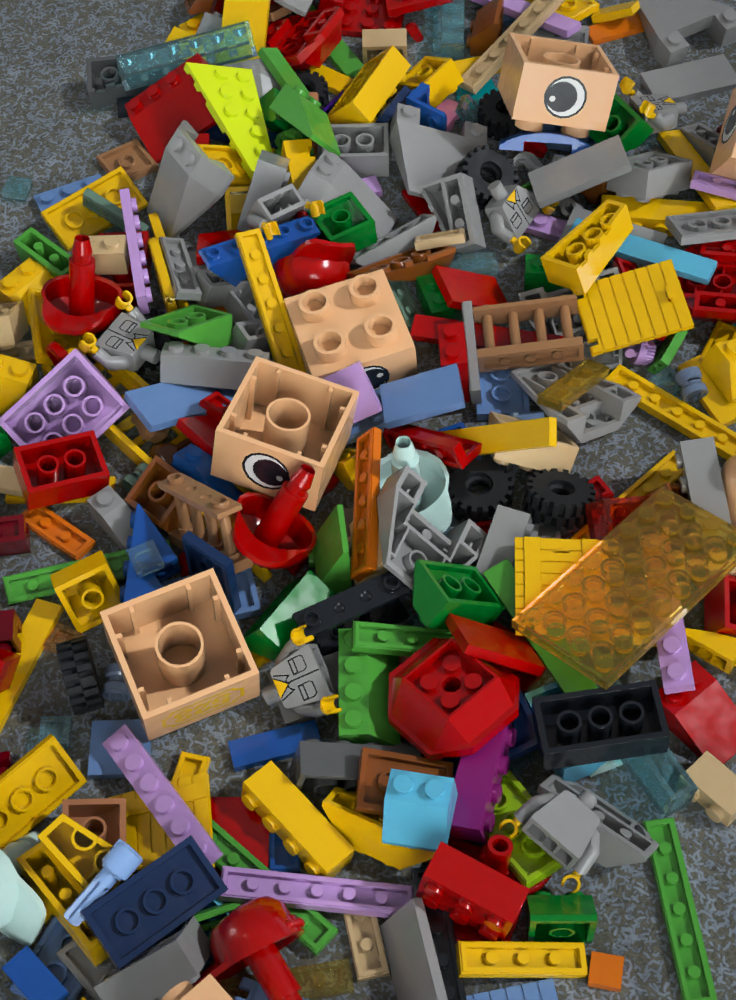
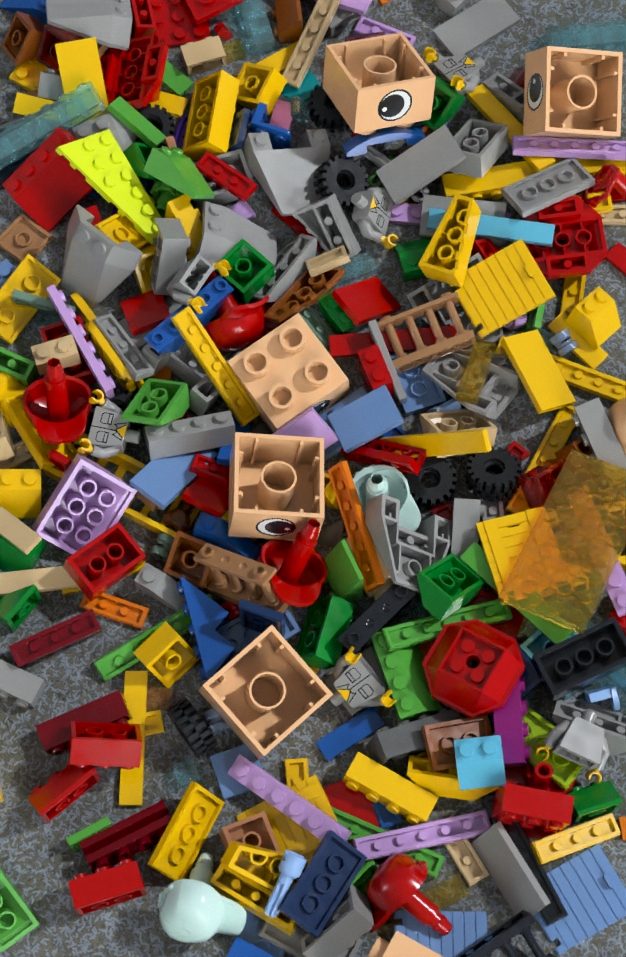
camera: 20 degrees left, 15 degrees up
(45, 666) = (154, 723): none -> yellow tile
(145, 558) = (206, 621): clear light blue tile -> none
(360, 142) = (226, 176): none -> red tile
(417, 50) = (233, 51): none -> clear yellow tile
(494, 645) = (491, 619): red tile -> none
(619, 786) = (603, 693): none -> light blue tile
(649, 404) = (538, 371): none -> yellow tile

